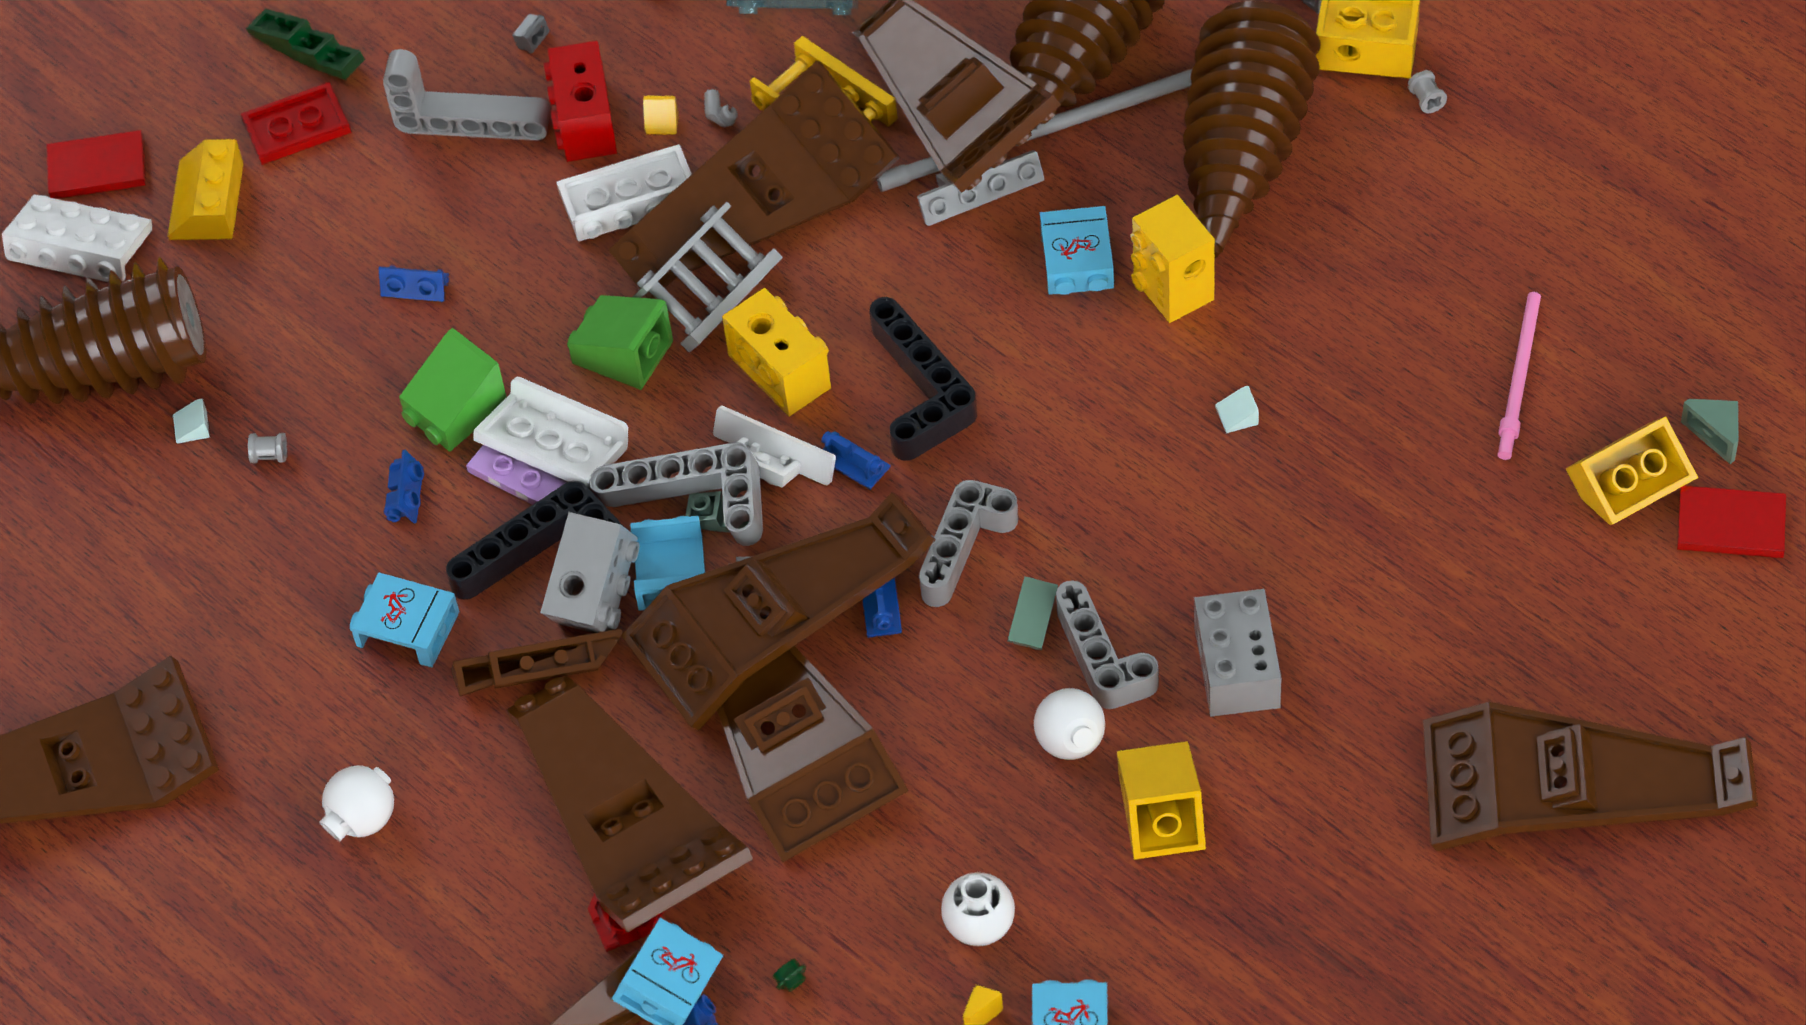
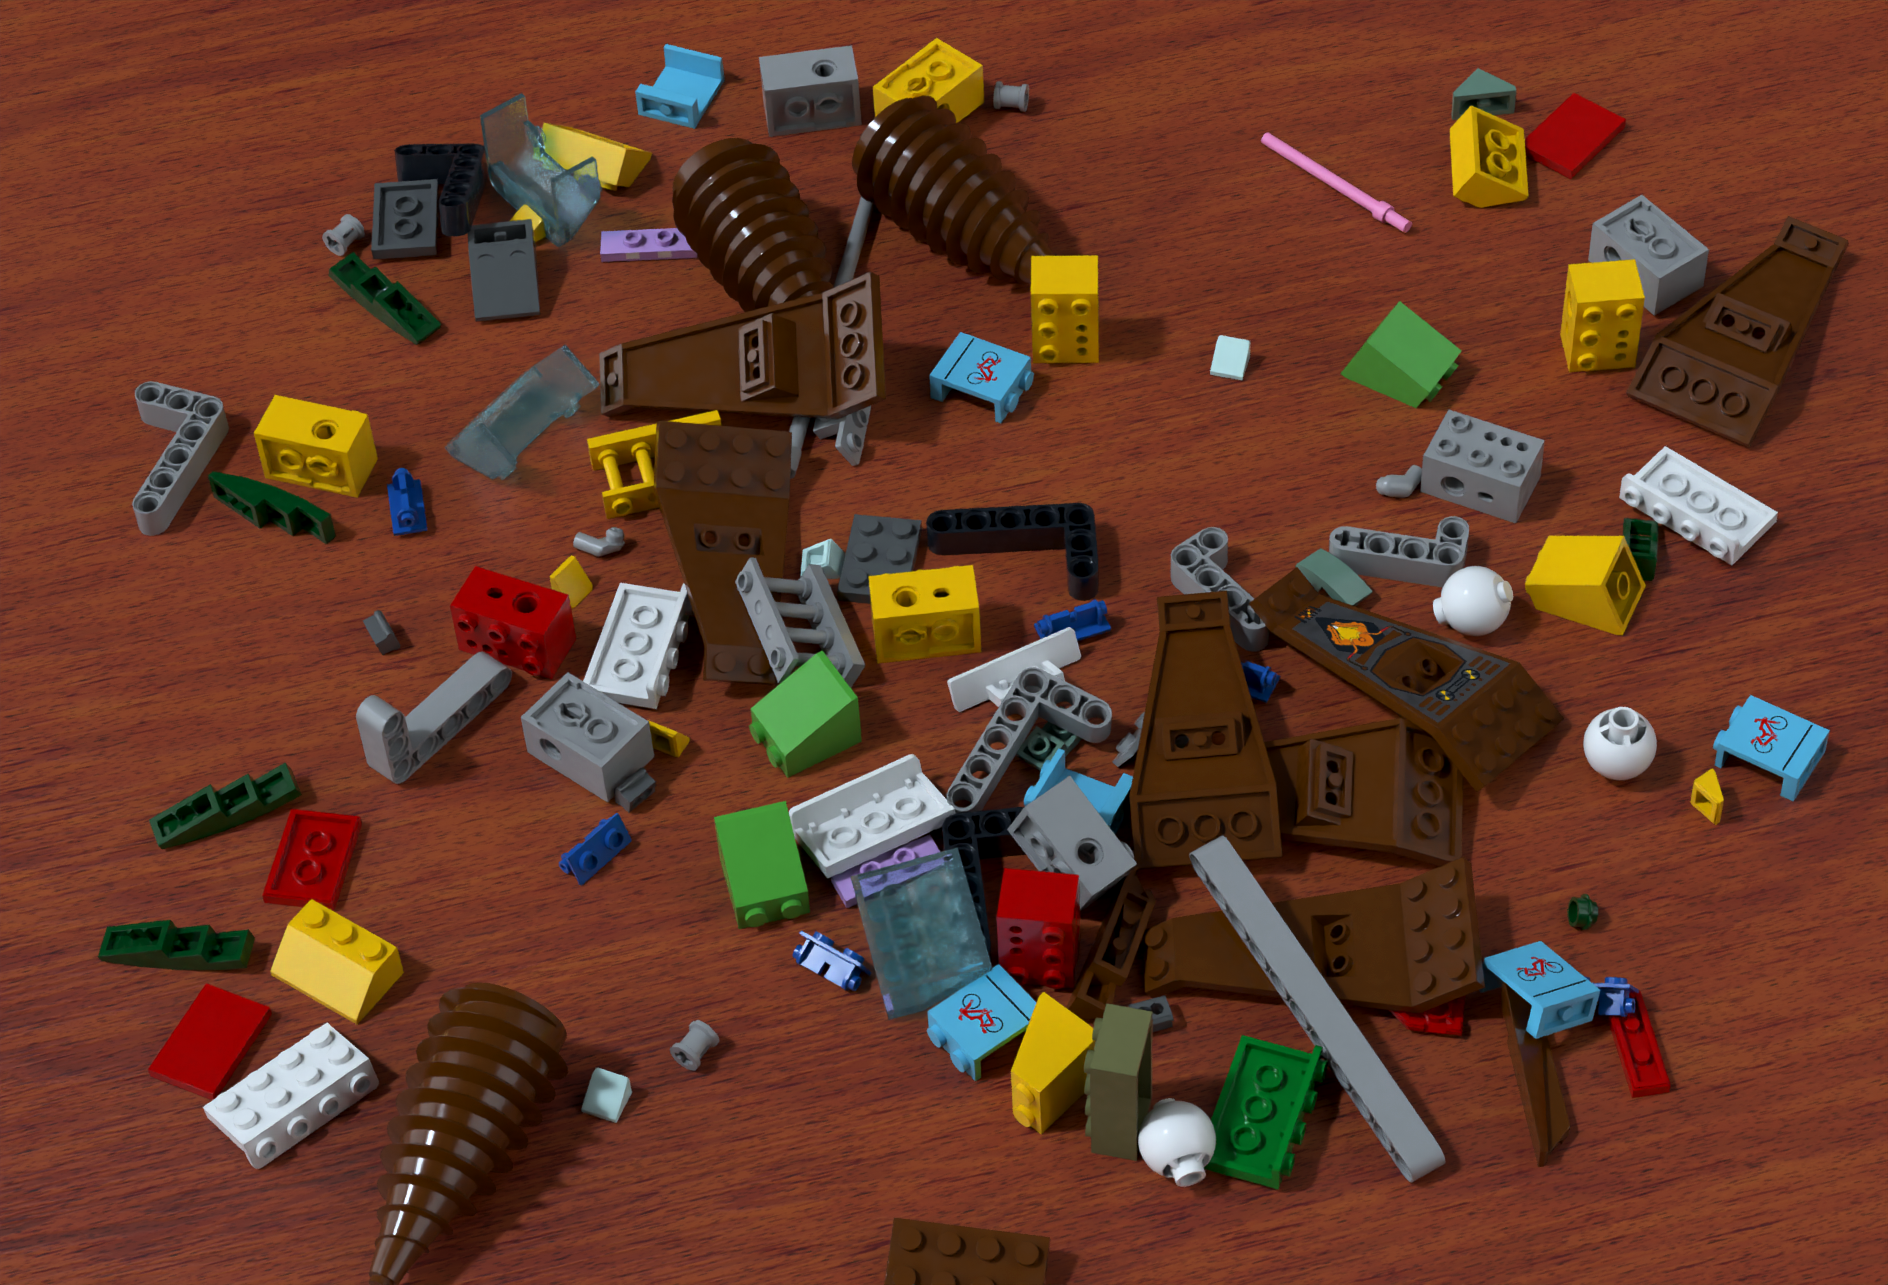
camera: 60 degrees left, 5 degrees down
(162, 94) = (168, 947): none -> dark green slope
(363, 721) = (1119, 1080): none -> olive piece
(377, 678) = (1049, 1064): none -> yellow slope
(437, 849) = (1264, 1110): none -> green bracket
(447, 521) = (921, 930): none -> clear light blue slope
(485, 273) = (635, 790): none -> dark grey piece
(491, 596) = (1039, 927): none -> red piece
(495, 724) = (1161, 1012): none -> dark grey piece
(501, 211) = (587, 736): none -> light grey piece
(541, 828) = (1317, 1009): none -> light grey beam
(552, 262) = (667, 739): none -> yellow slope
(805, 261) = (827, 555): none -> light aqua slope
(833, 293) = (876, 548): none -> dark grey plate
(934, 779) = (1468, 699): none -> reddish brown wing
(1179, 604) = (1400, 485): none -> light grey arm
(1224, 833) = (1642, 547): none -> dark green slope
(1322, 841) = (1697, 505): none -> white bracket
(1326, 531) = (1404, 358): none -> bright green slope
(1474, 646) = (1602, 315): none -> yellow piece
(1598, 649) = (1665, 254): none -> light grey piece

